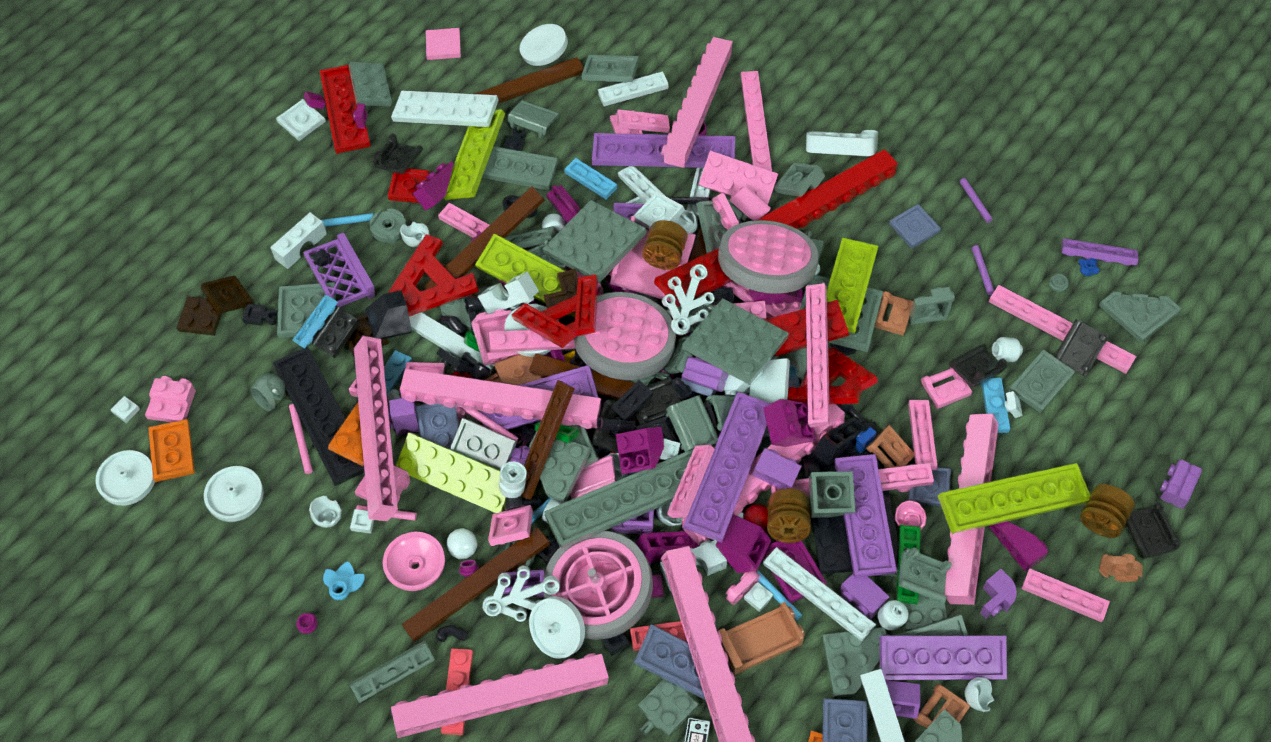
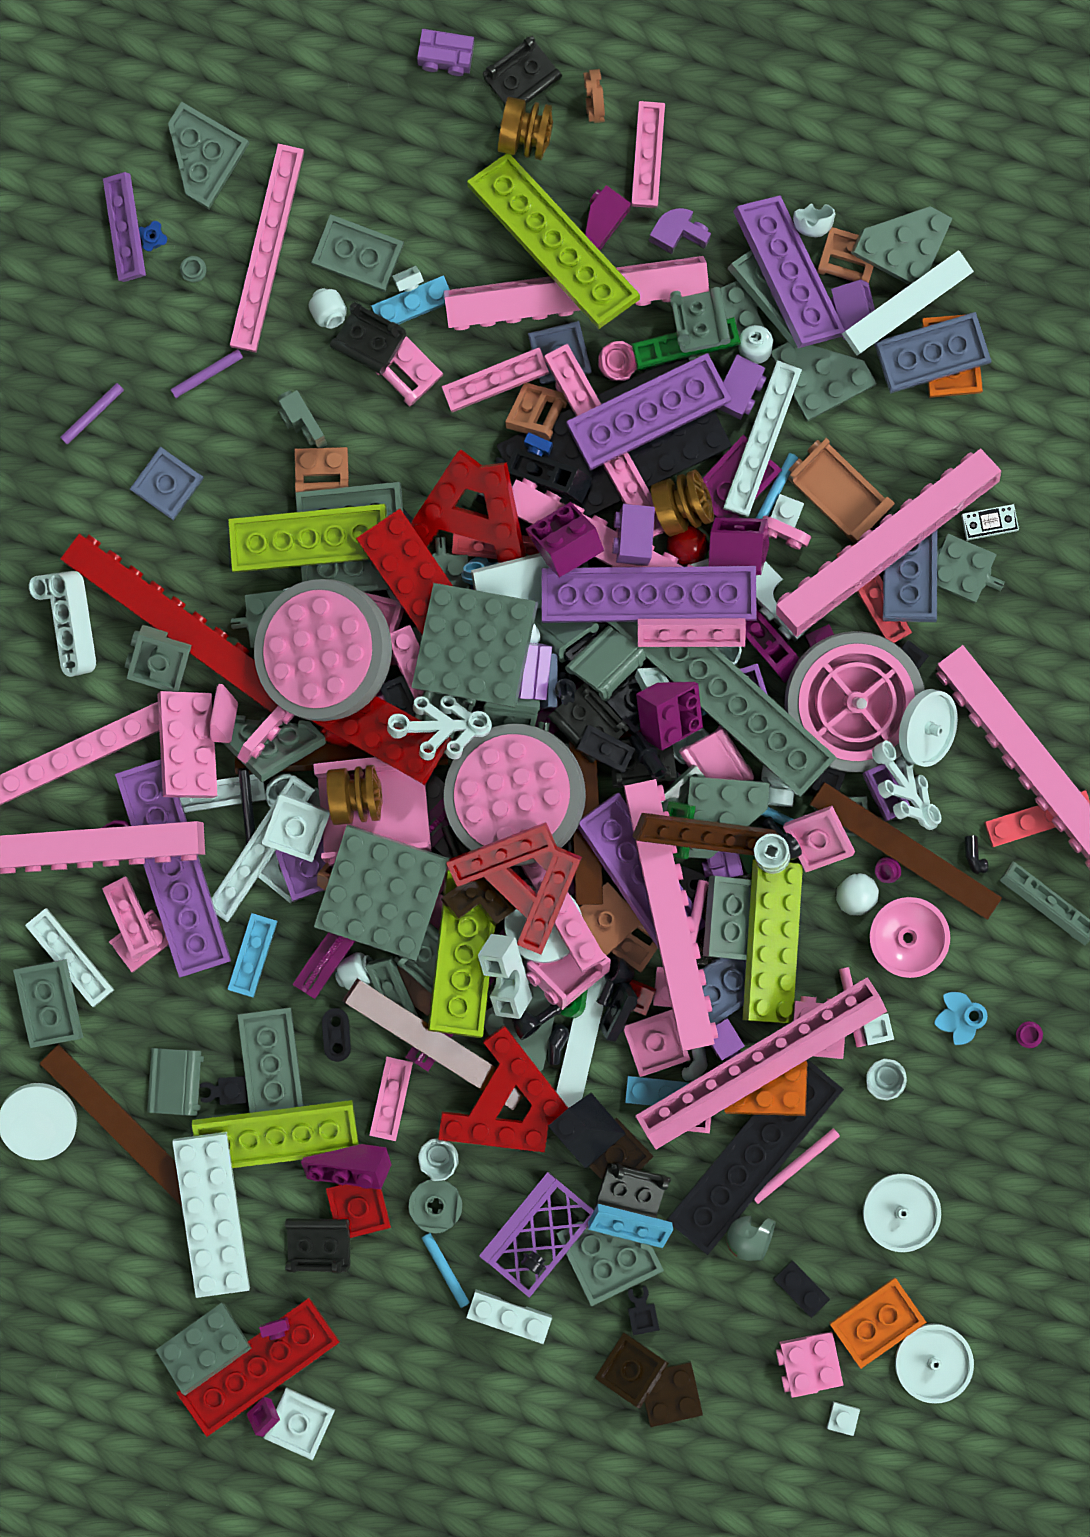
camera: 115 degrees left, 25 degrees up
(220, 414) = (801, 1288): none -> black plate
(443, 44) = (83, 1277): bright pink tile -> none
(817, 355) = (456, 534): bright pink plate -> none
(831, 494) = (644, 457): sand green slope -> none
(1081, 347) = (292, 214): pearl dark grey piece -> none

